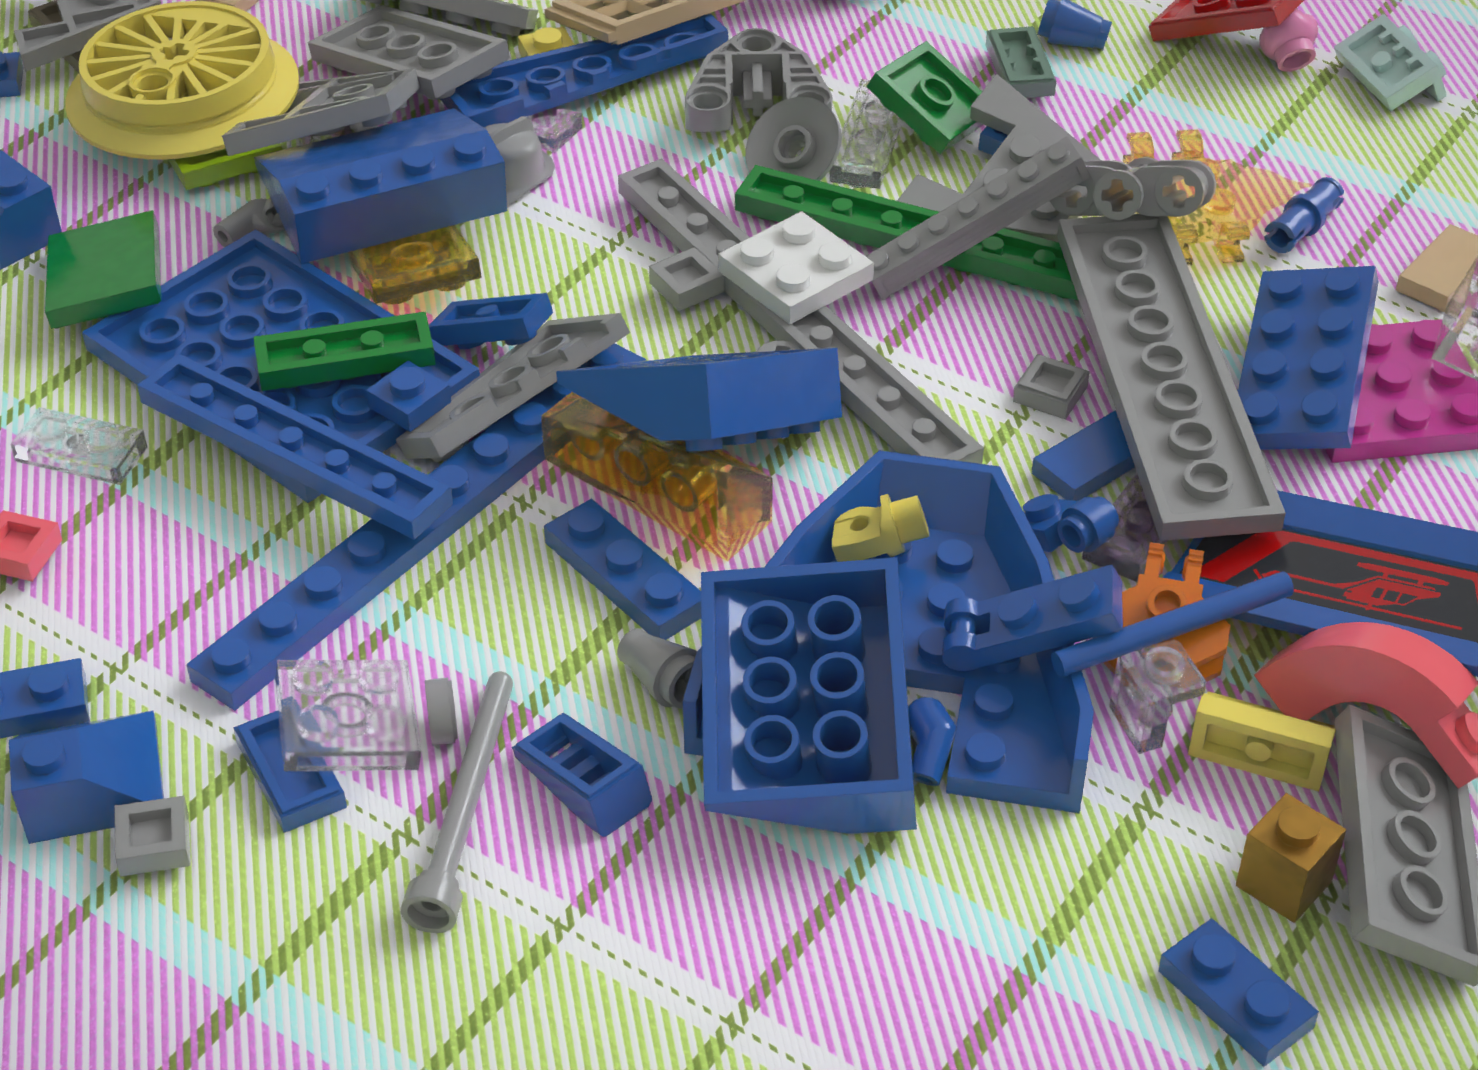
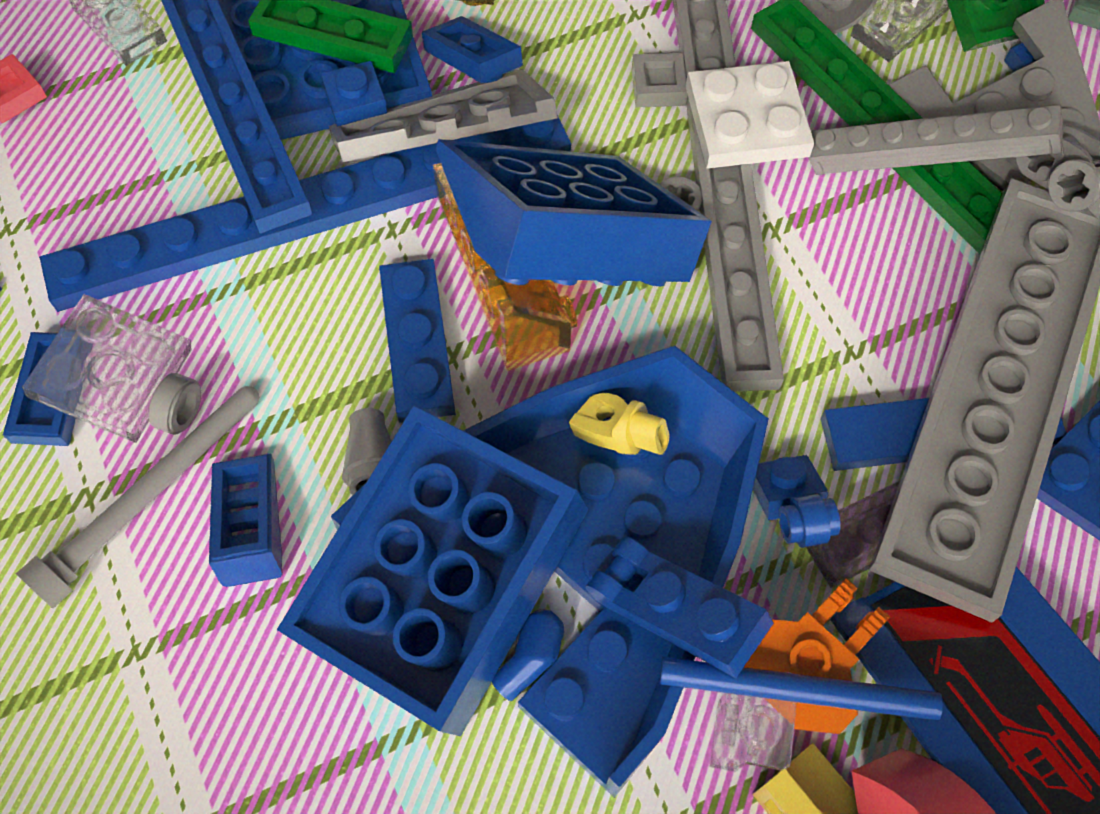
camera: 30 degrees right, 20 degrees up
(1051, 386) = (898, 338): light grey tile -> none

